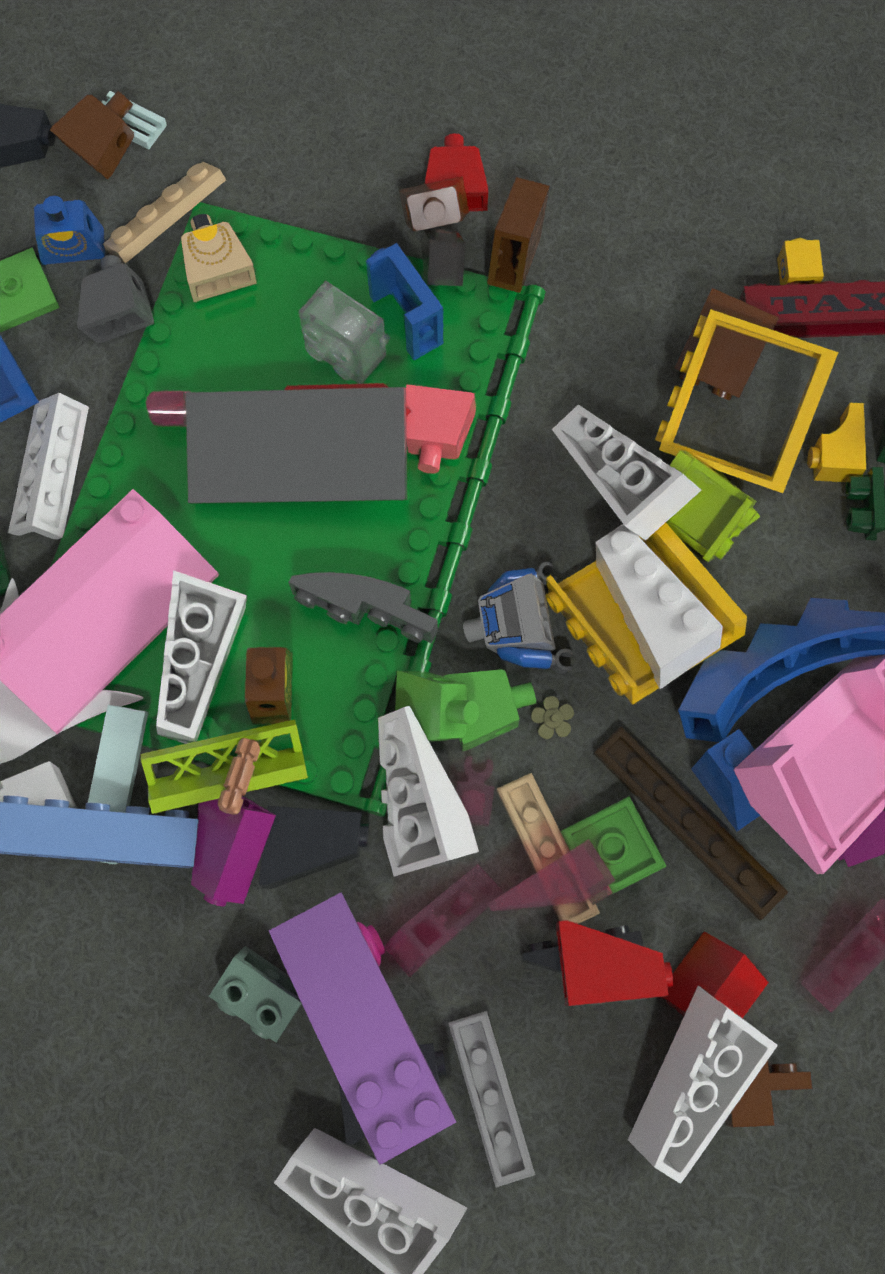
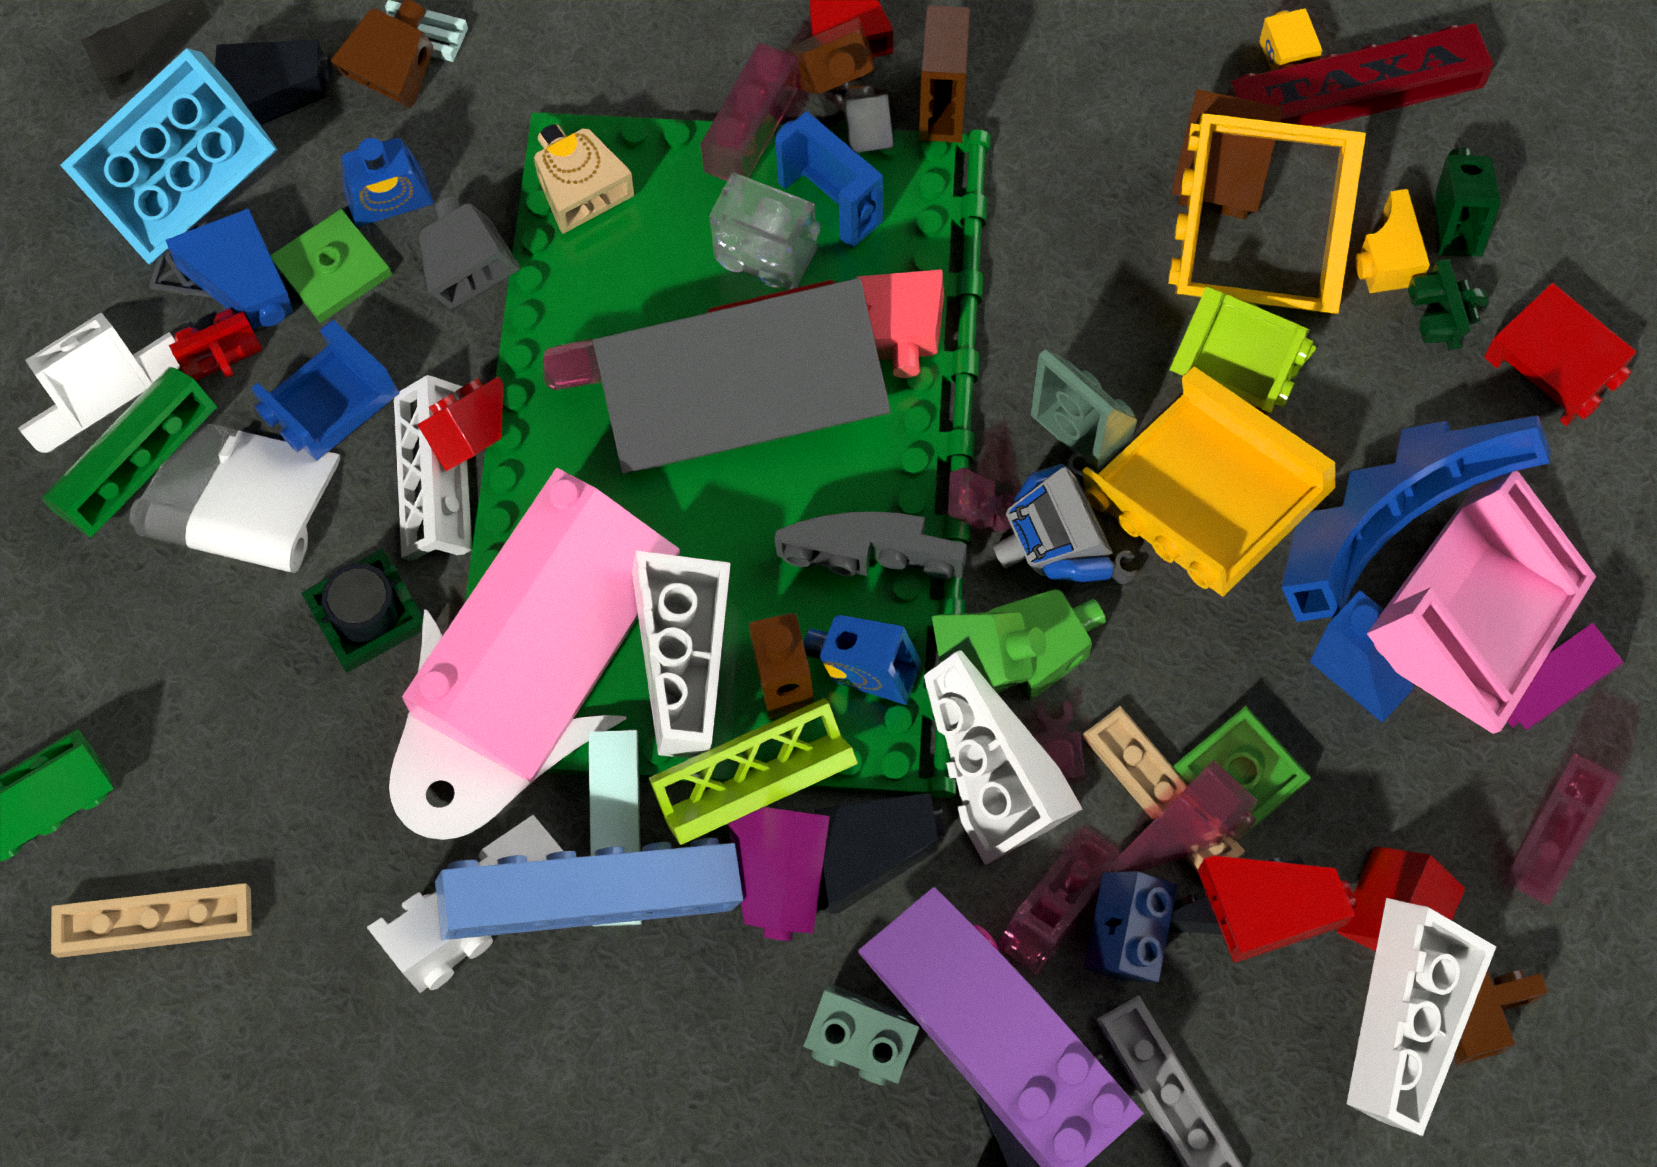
camera: 10 degrees left, 5 degrees down
(80, 438) = (465, 425): none -> red slope
(164, 212) = (495, 132): tan plate -> none
(239, 776) = (778, 775): nougat axle -> none
(337, 693) = (867, 656): none -> blue torso
(358, 235) = (750, 113): none -> clear pink brick
(457, 585) = (975, 503): none -> clear pink plate
(491, 957) = (1130, 926): none -> dark blue brick
(552, 718) = (1128, 637): olive plant -> none
(557, 527) = (1079, 411): none -> sand green slope
(629, 478) = (1154, 329): white wedge -> none
(656, 606) = (1223, 473): white wedge -> none
(691, 824) = (1325, 724): dark brown tile -> none

